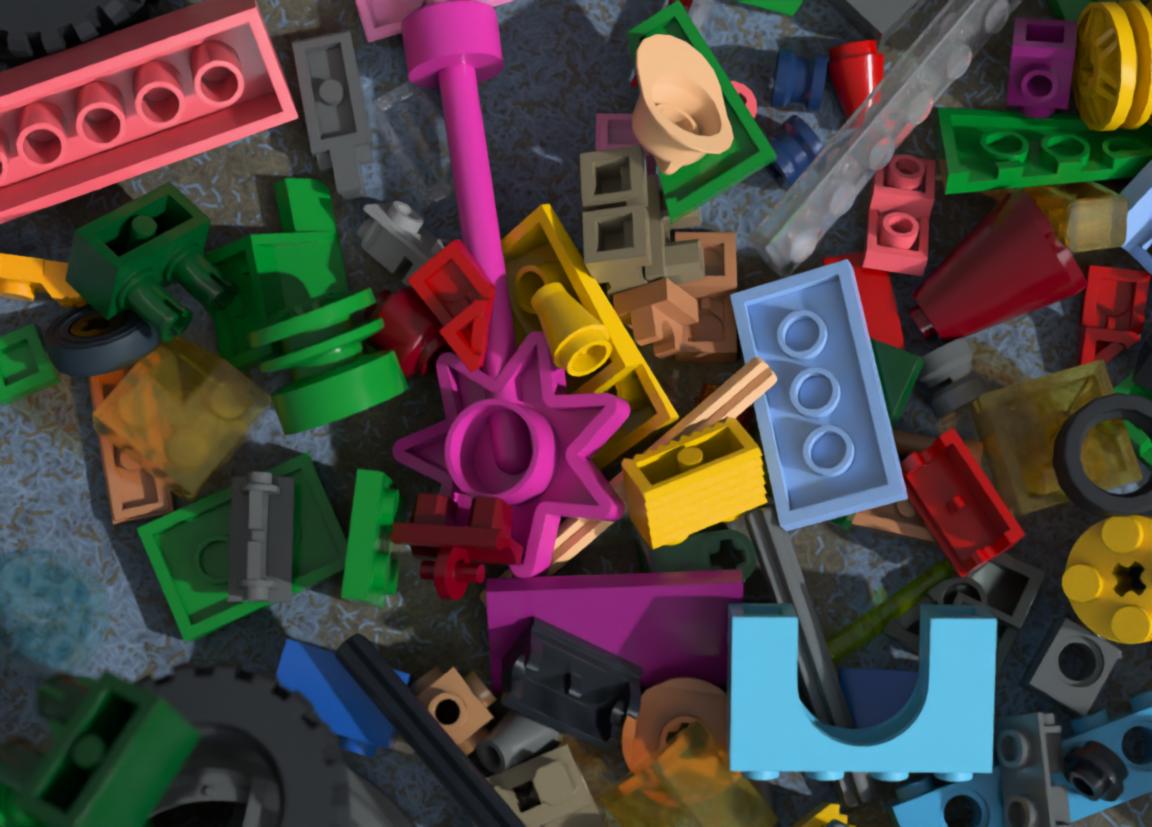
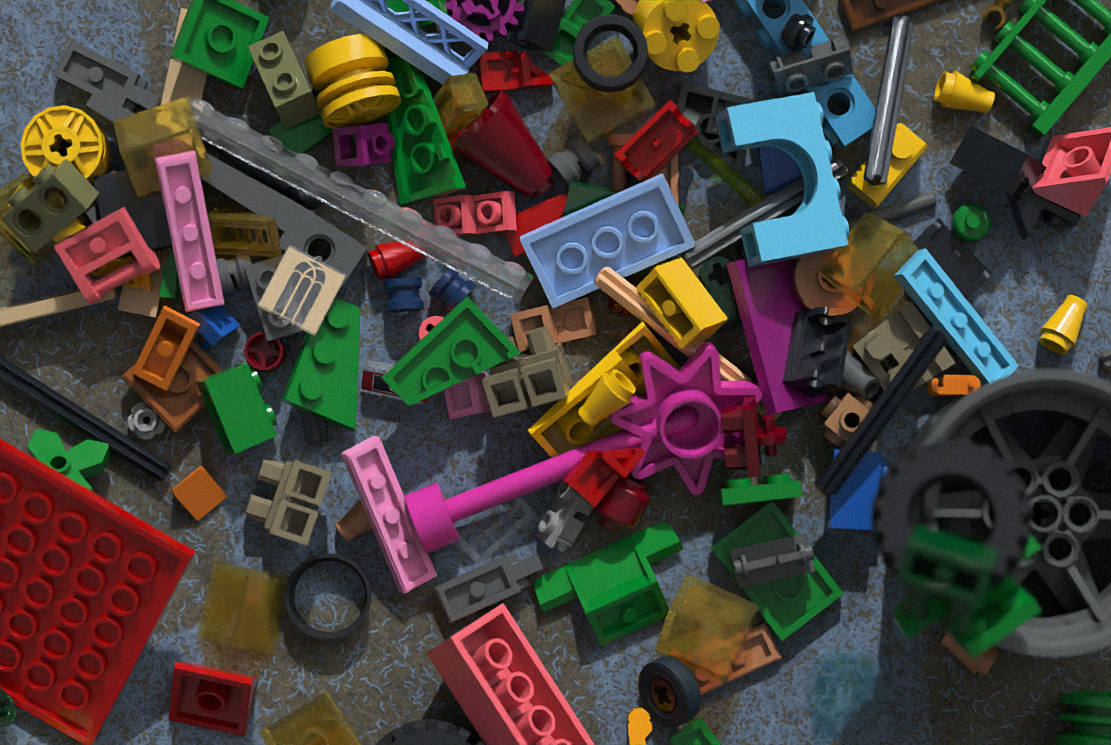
camera: 110 degrees left, 5 degrees up
(141, 250) = (611, 680): dark green brick -> none
(327, 360) = (659, 541): green wheel -> none
(657, 314) = (578, 350): nougat tile -> none
(679, 104) = (453, 359): light nougat piece -> none
(1047, 681) = (751, 53): dark grey brick -> none

